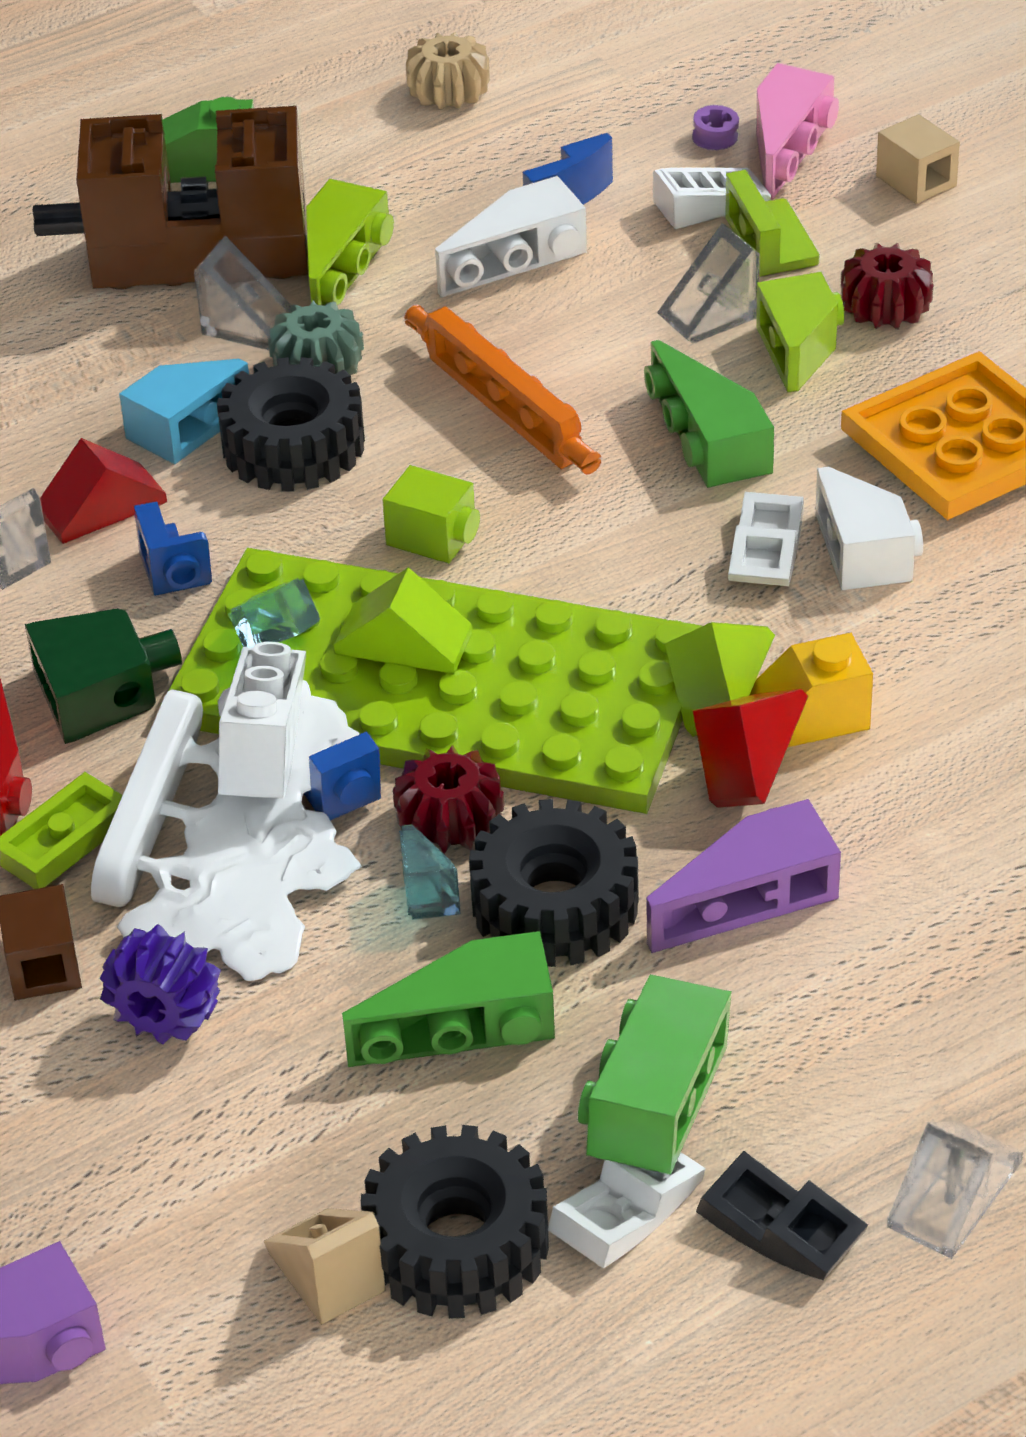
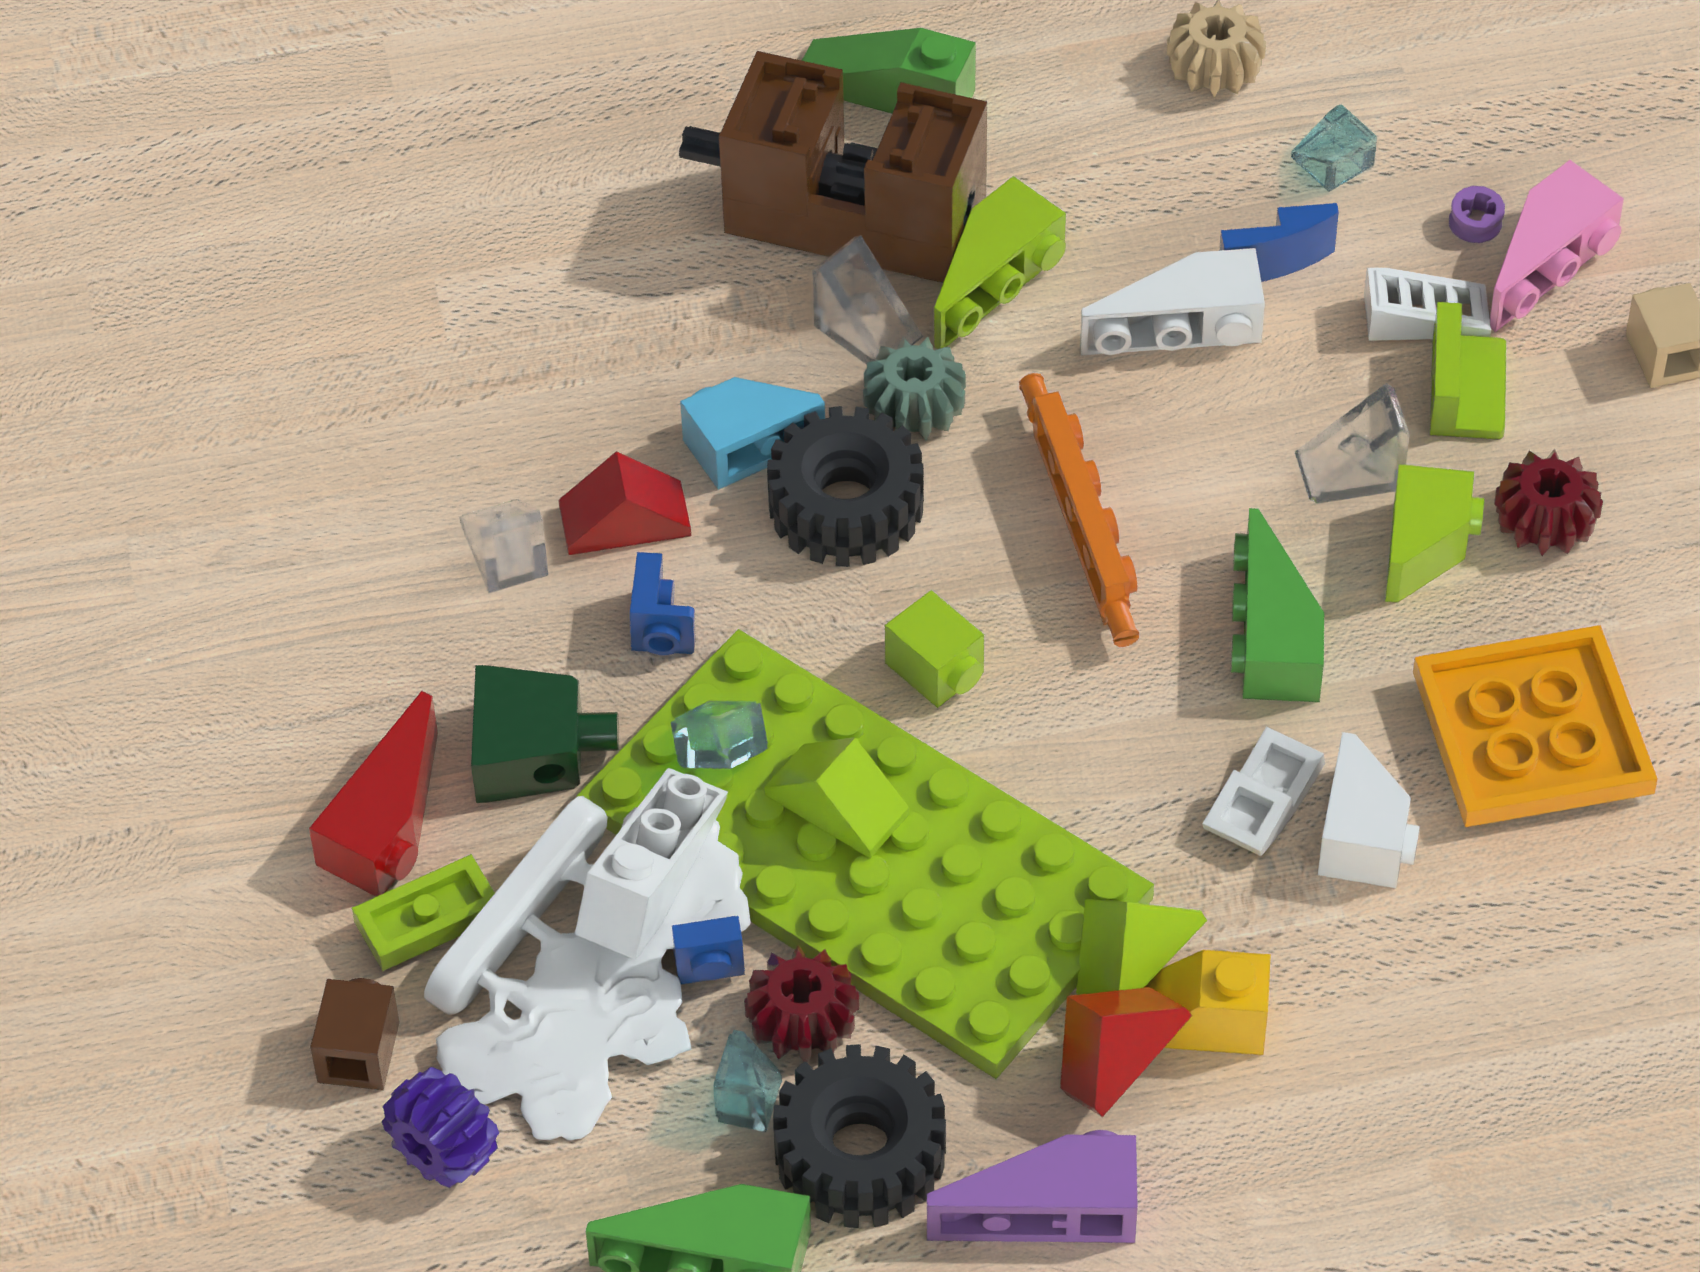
camera: 20 degrees right, 10 degrees up
(580, 110) = (1336, 149): none -> clear light blue slope

